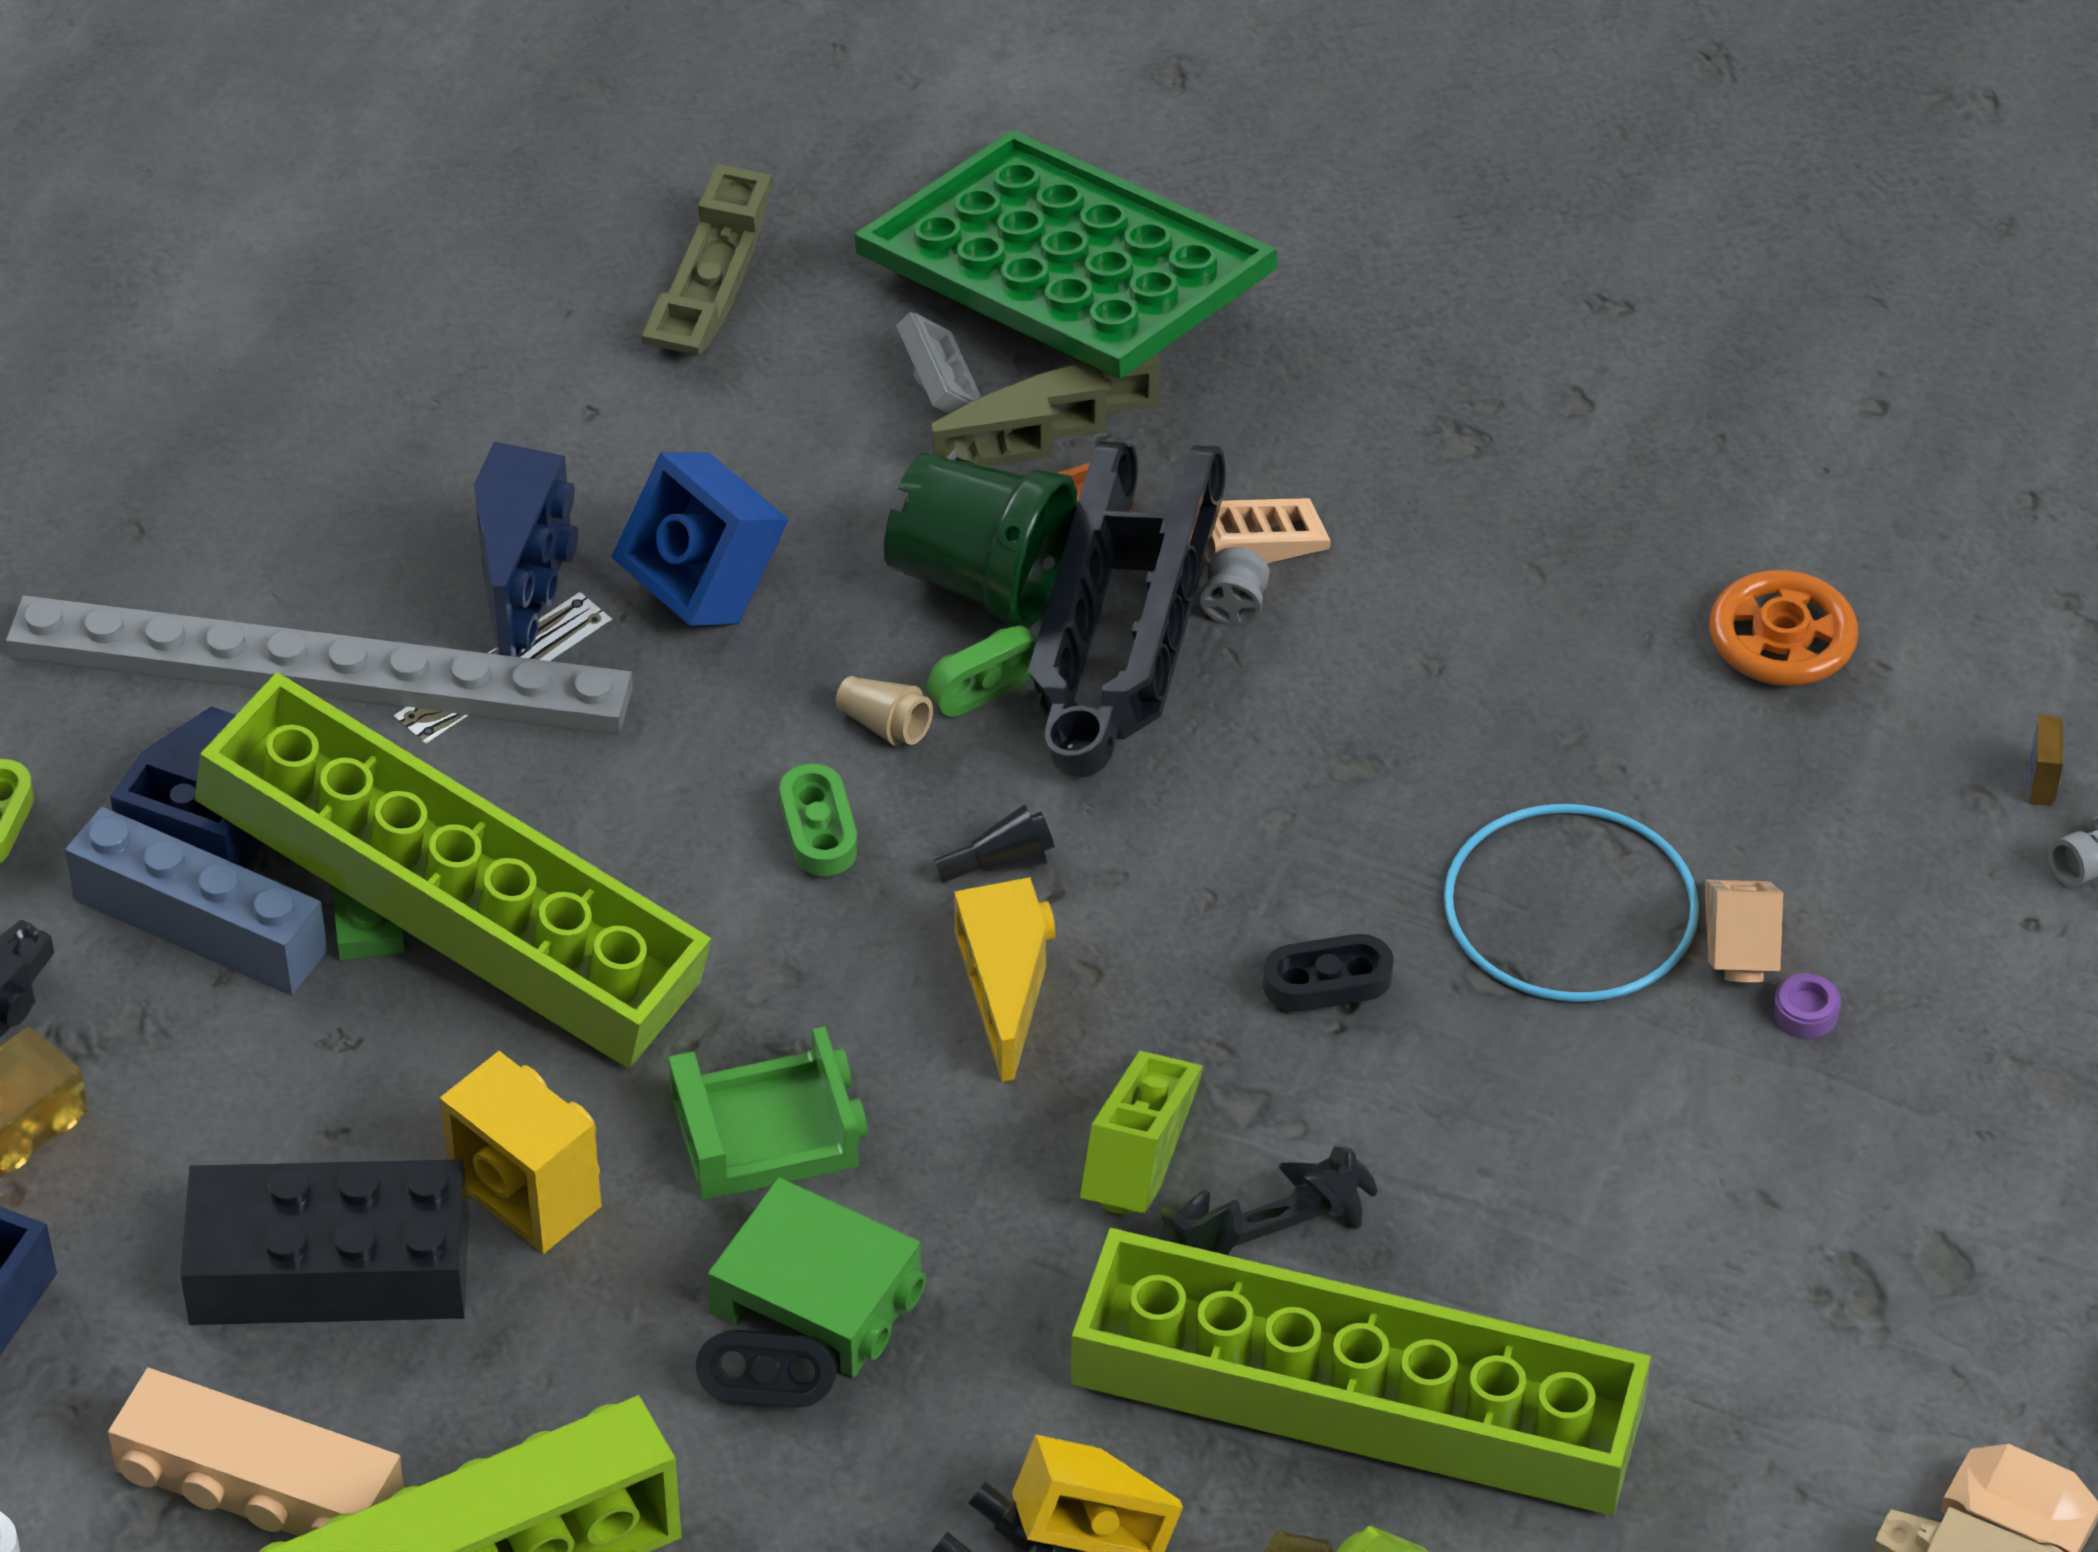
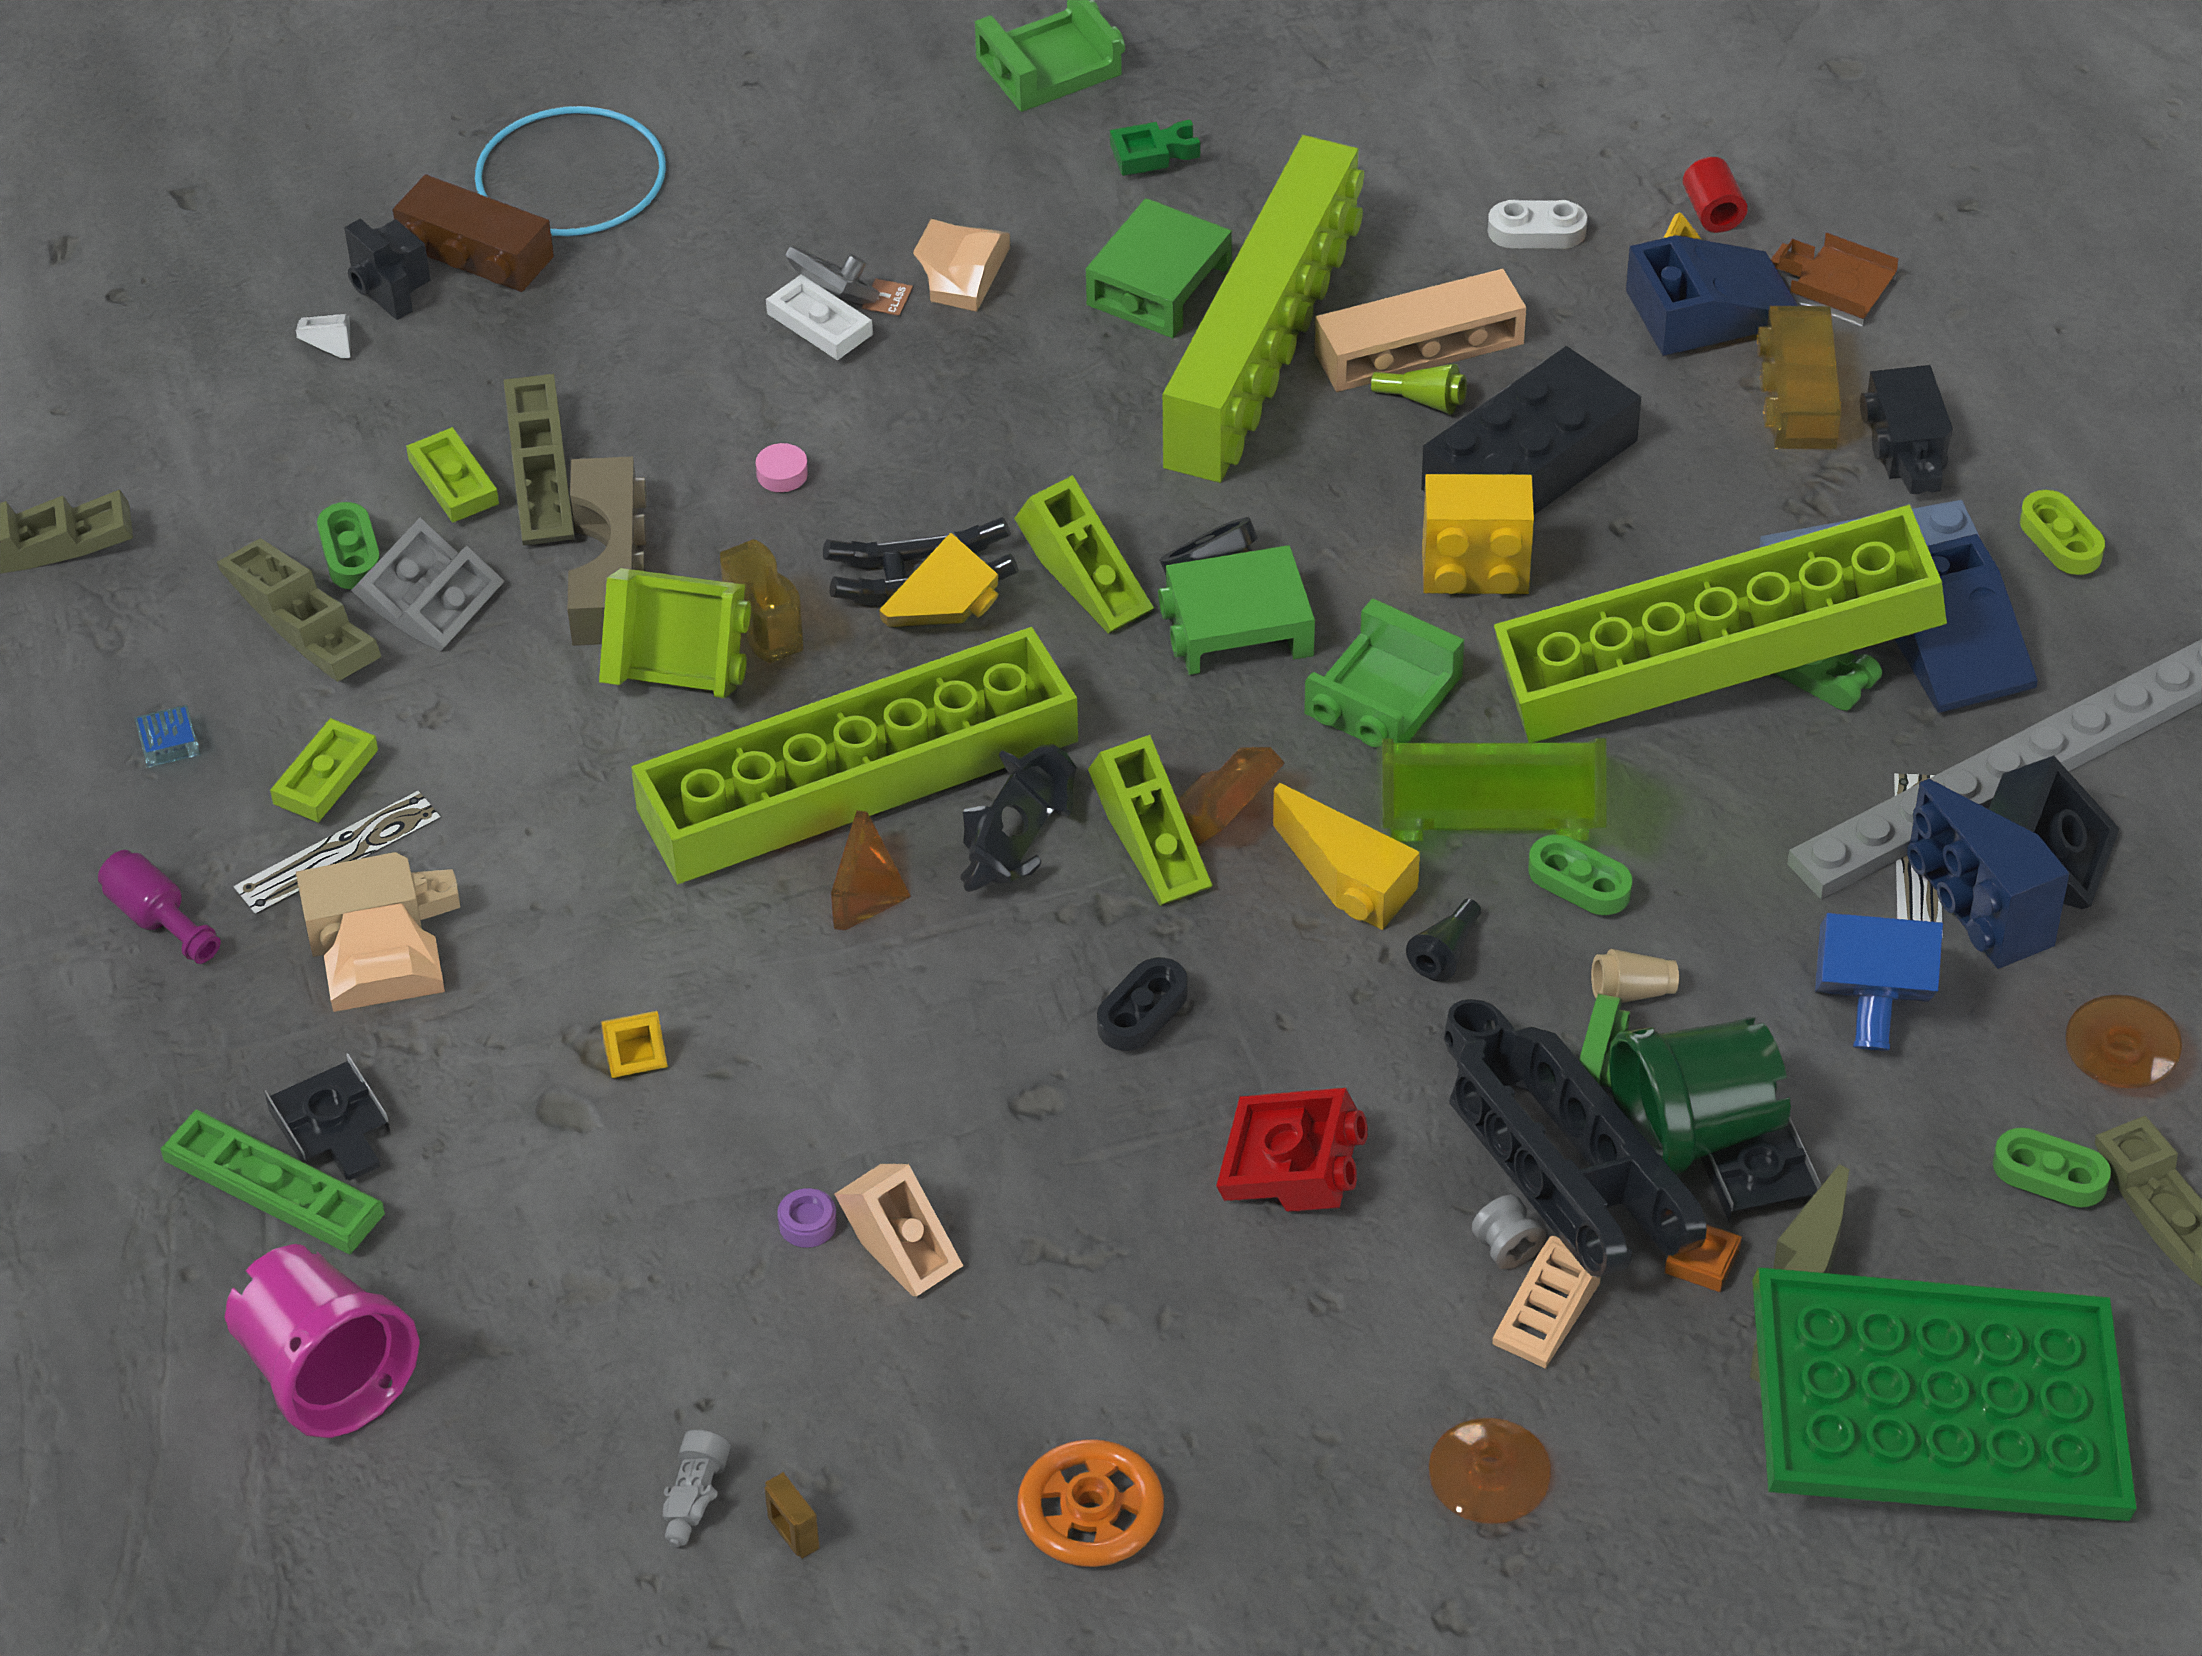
camera: 140 degrees right, 0 degrees up
(324, 1389) = (1435, 387): none -> lime cone
(407, 580) = (2065, 817): none -> black slope
(577, 396) = (2123, 1041): none -> clear orange dish
(755, 362) = (2052, 1168): none -> bright green plate
(780, 950) = (1491, 787): none -> clear neon green windscreen
(898, 1458) = (1082, 554): none -> lime slope
(937, 363) = (1914, 1251): light grey plate -> none
(1040, 1107) = (1224, 792): none -> clear orange slope
(1340, 756) = (1293, 1148): none -> red plate
(1435, 470) = (1487, 1489): none -> clear orange dish
(1472, 1265) = (865, 878): none -> clear orange slope
(1563, 995) = (1046, 1100): medium azure piece -> none
(1828, 1267) = (634, 1044): none -> yellow slope

